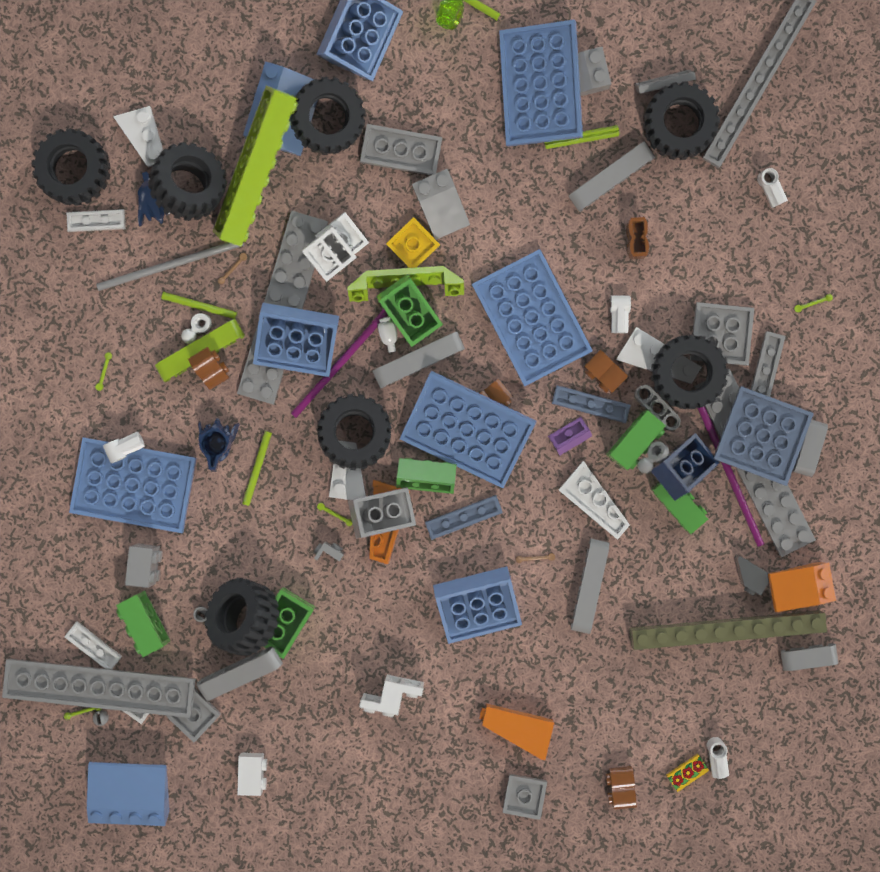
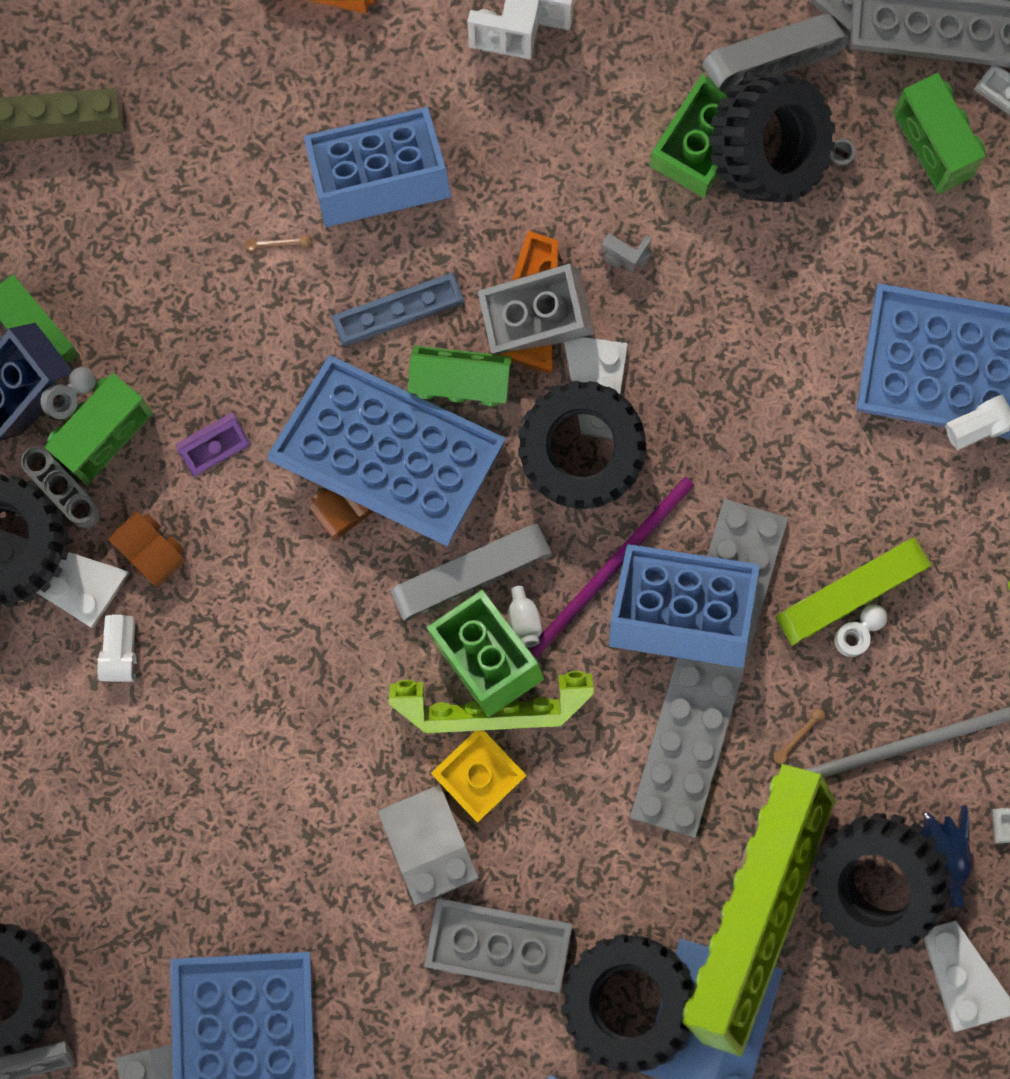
camera: 175 degrees right, 10 degrees down
(143, 565) = (941, 227): light grey brick -> none
(199, 305) = (856, 672): lime bar -> none
(208, 367) = (836, 557): dark orange brick -> none
(216, 442) = (822, 433): dark blue piece -> none
(257, 467) = (751, 393): lime bar -> none
(321, 506) = (640, 328): lime hinge -> none
(335, 246) = (615, 766): white bracket -> none
(532, 317) = (272, 645): medium blue plate -> none
(589, 135) = (156, 969): lime axle -> none
(590, 497) = (179, 338): white wing -> none
(590, 587) = (185, 195): light grey beam -> none
(591, 404) = (175, 496): sand blue tile -> none
(611, 176) = (121, 891): light grey beam -> none
(636, 233) = (81, 769): dark orange brick -> none

